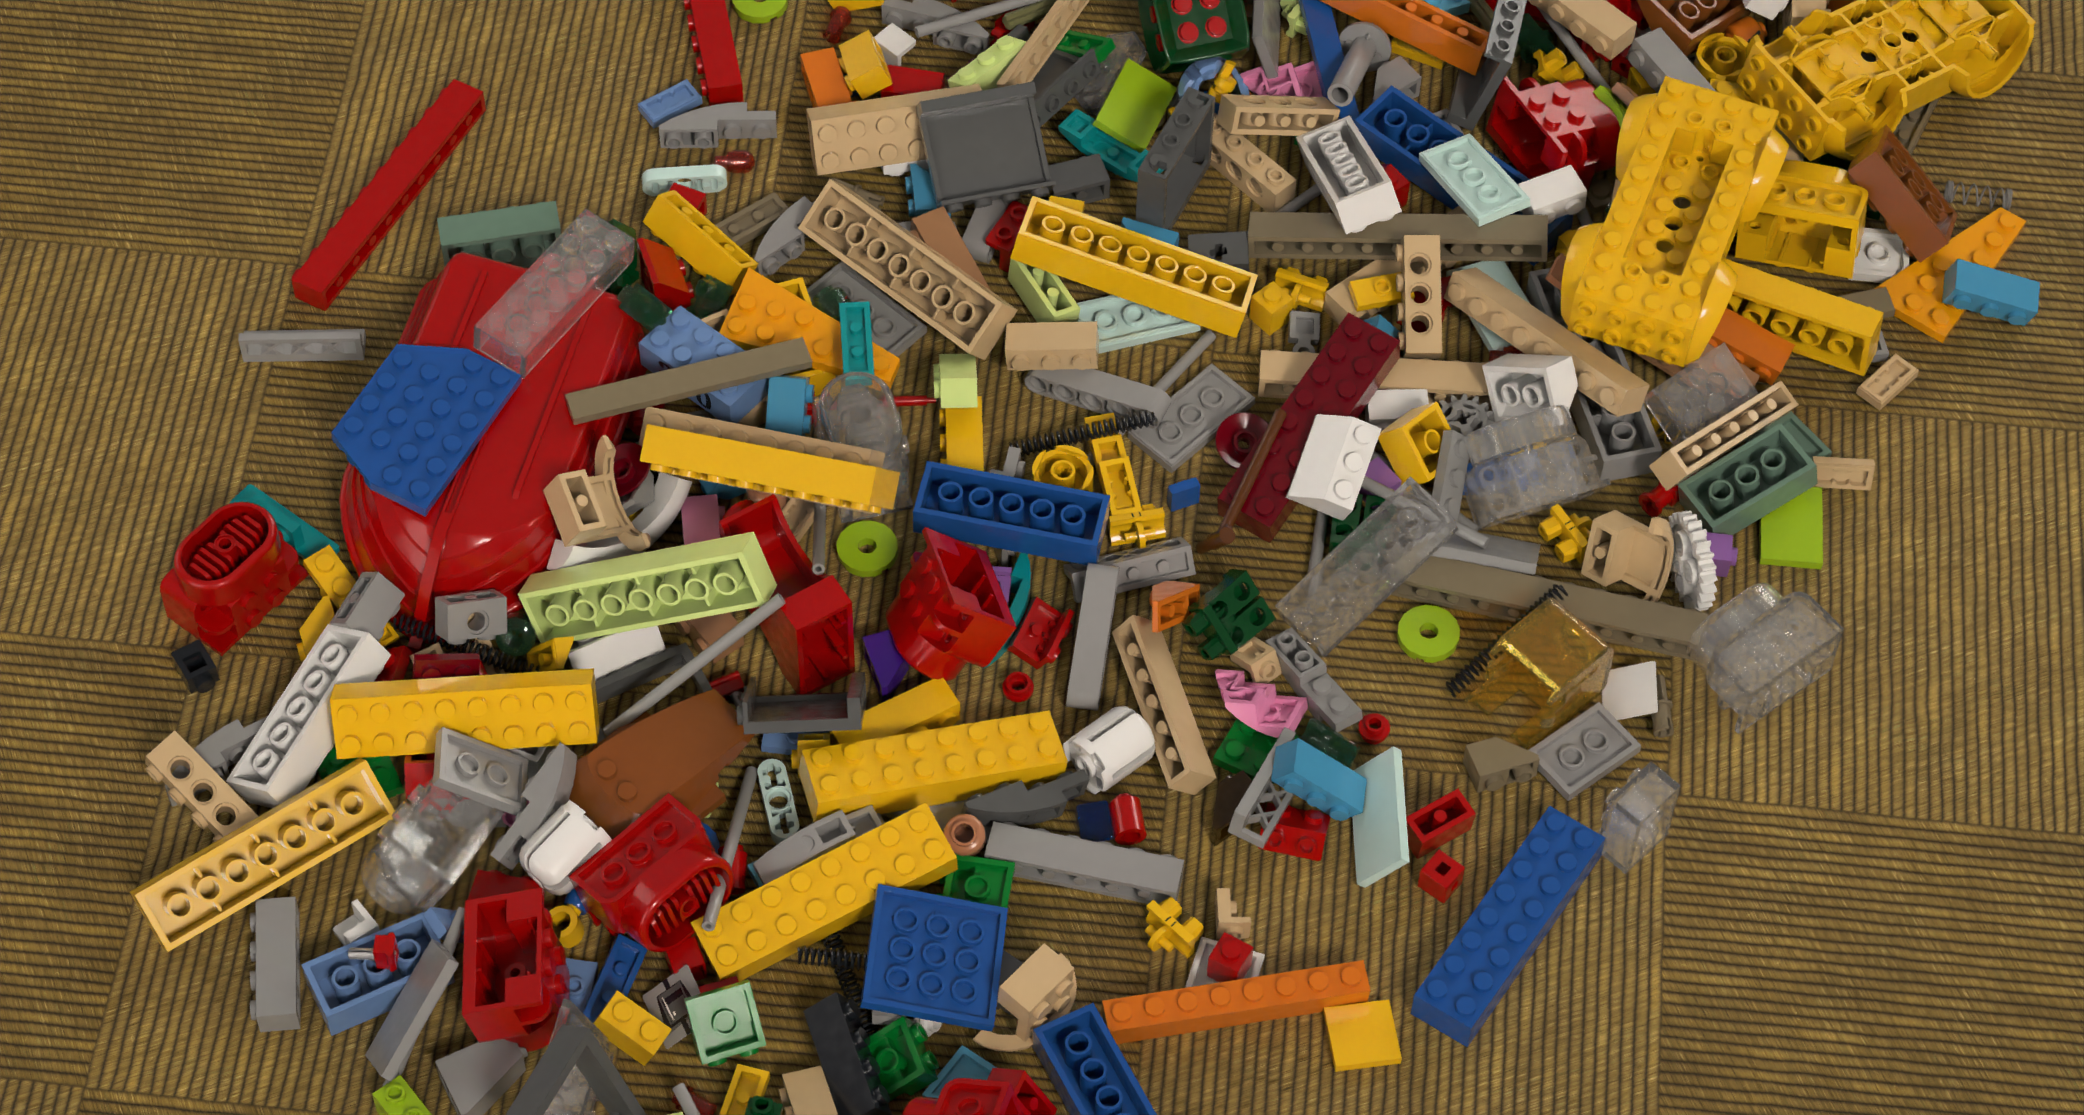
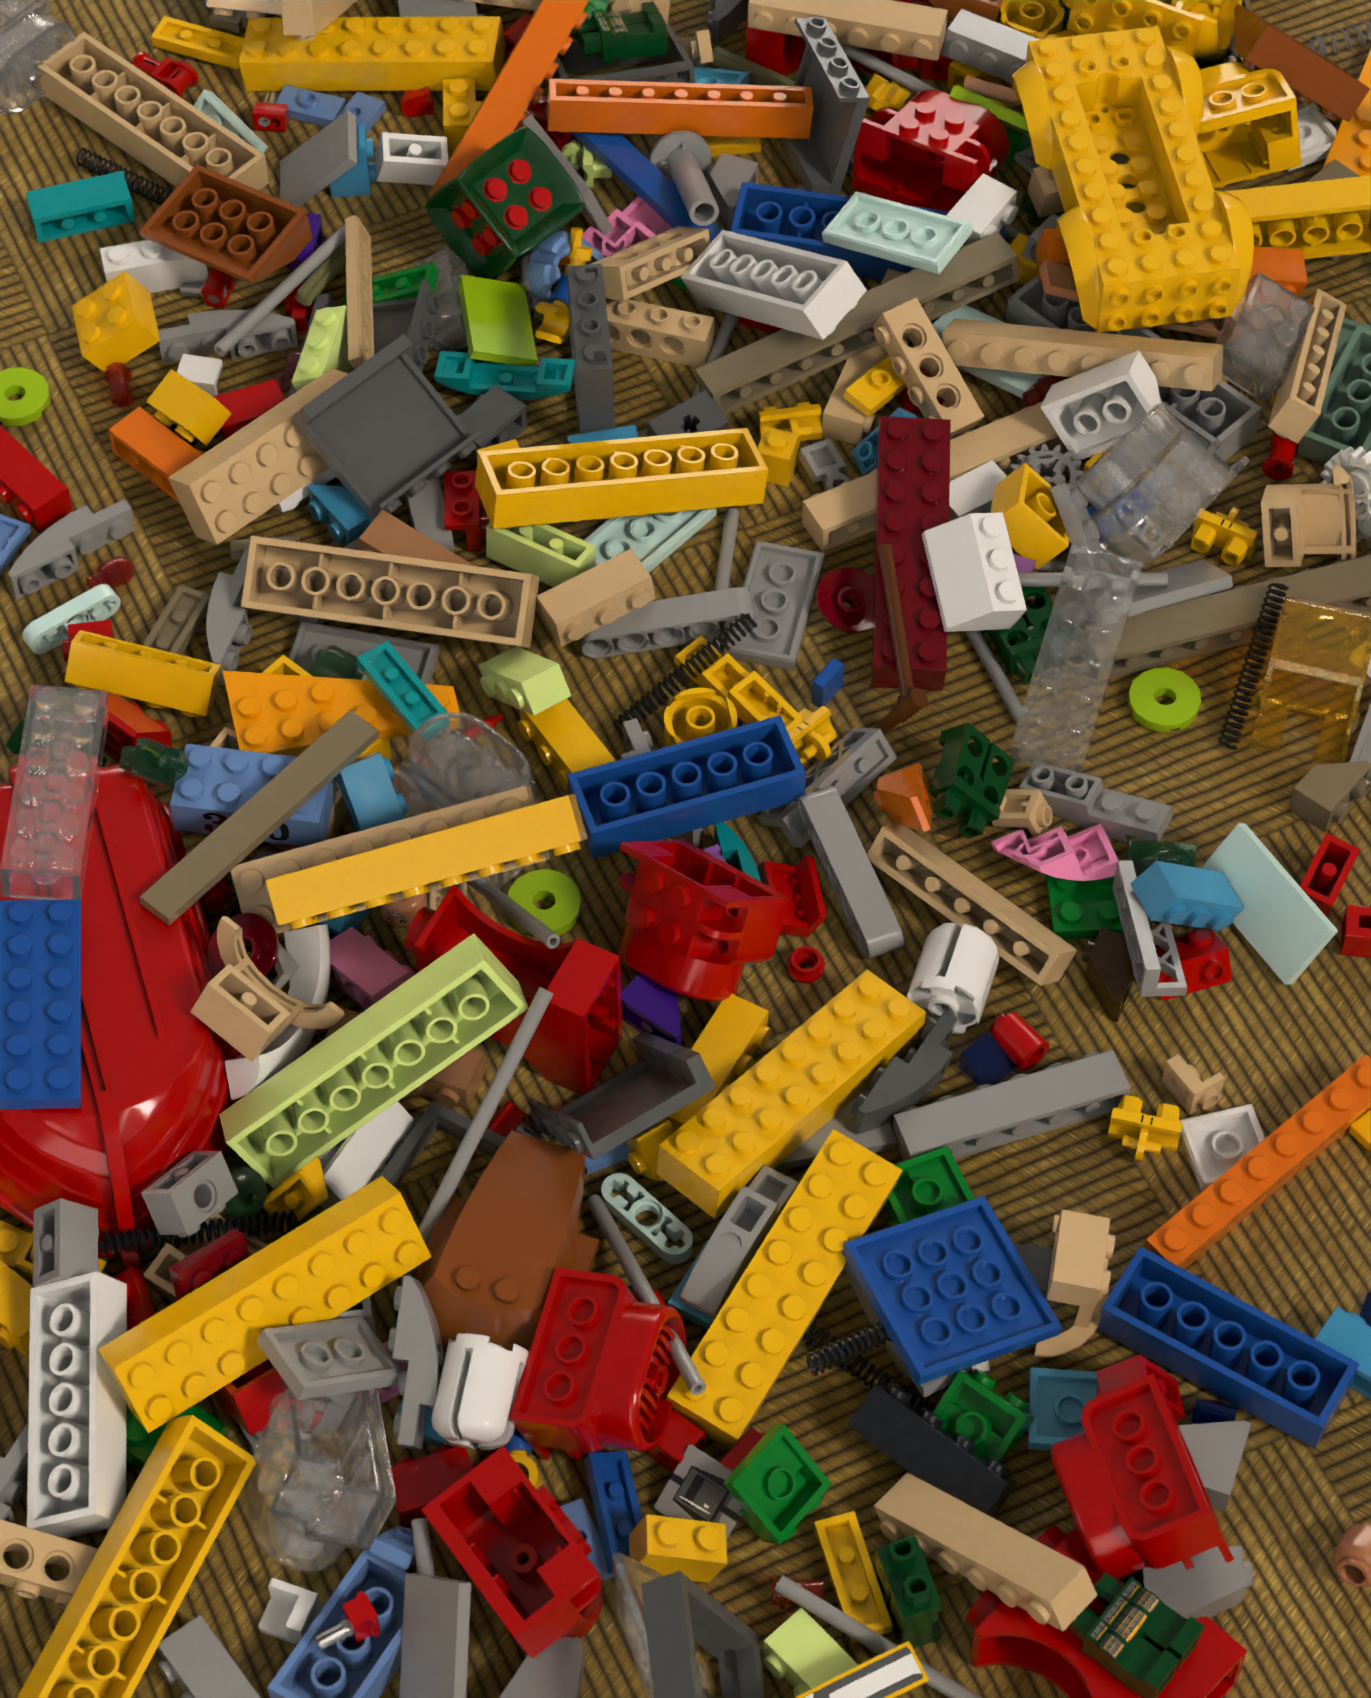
camera: 30 degrees left, 0 degrees up
(711, 297) = (196, 723): clear green hips -> none
(965, 834) = (882, 1138): nougat head -> none
(1229, 959) = (1233, 1127): red brick -> none
(1371, 735) = (1186, 828): red plate -> none

